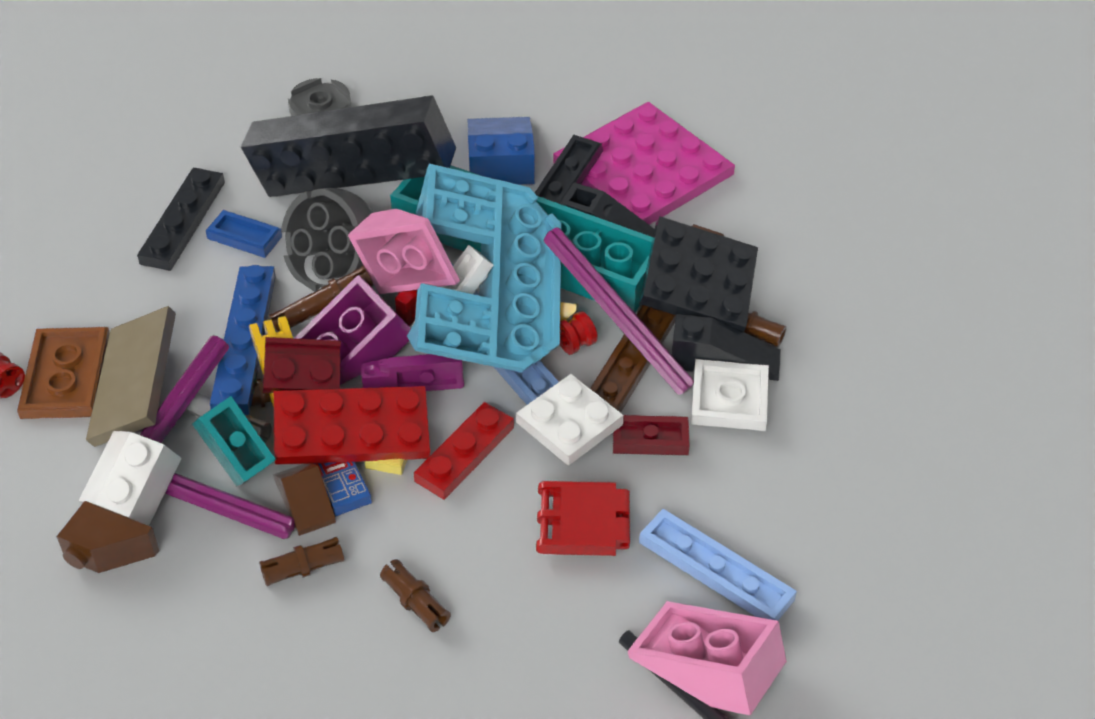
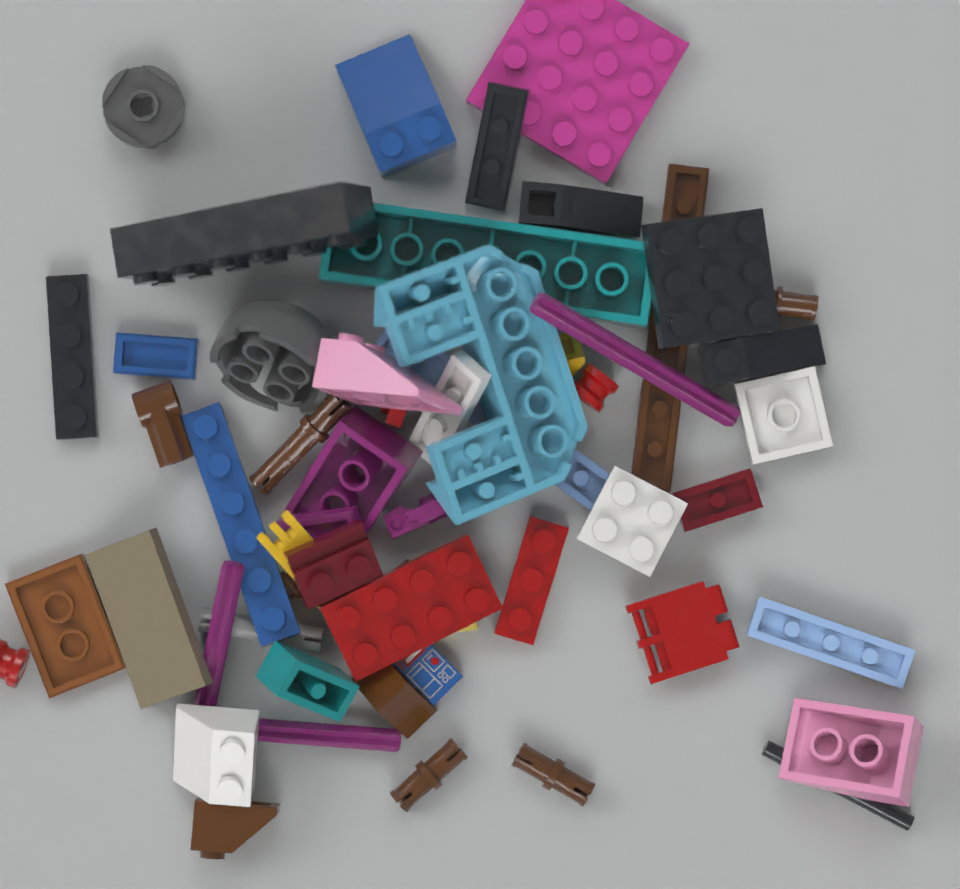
camera: 20 degrees left, 40 degrees up
(223, 264) = (160, 414): none -> reddish brown piece

